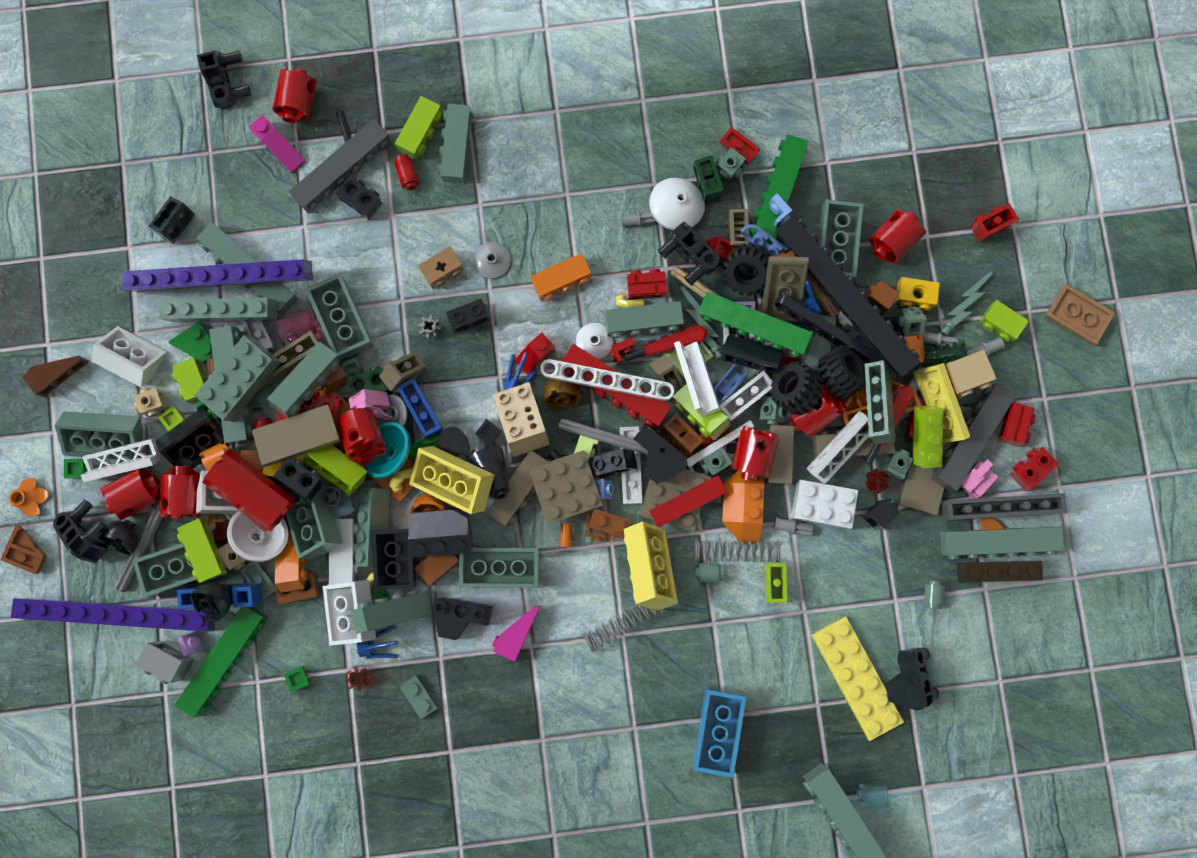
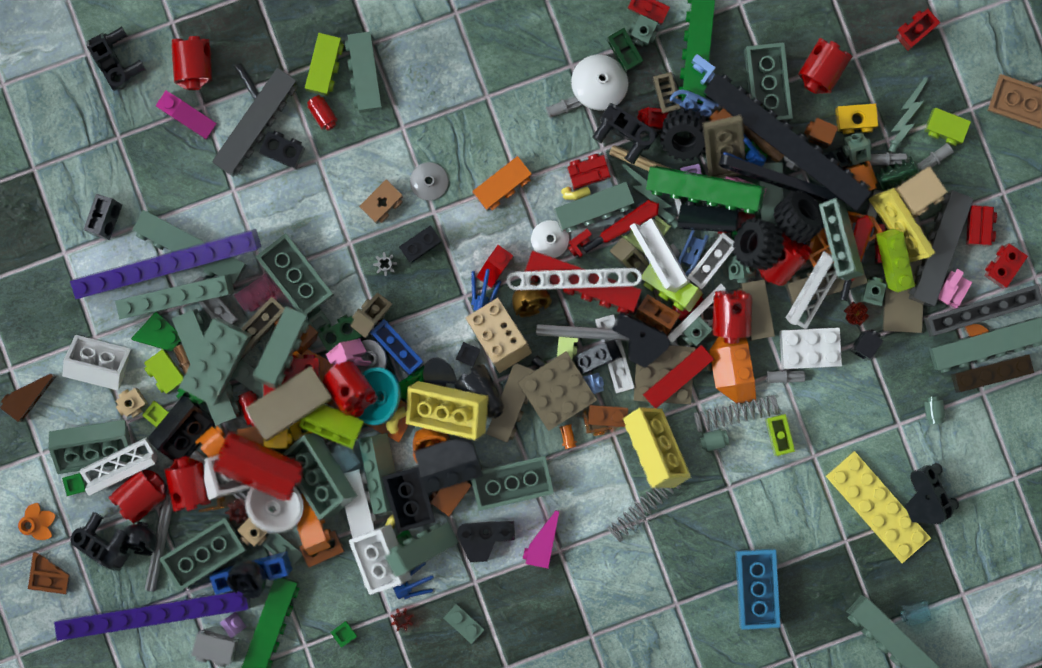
camera: 15 degrees left, 5 degrees up
(201, 551) = (224, 534): lime brick -> none
(296, 482) = (300, 449): black brick -> none
(329, 495) = (337, 453): black wheel -> none

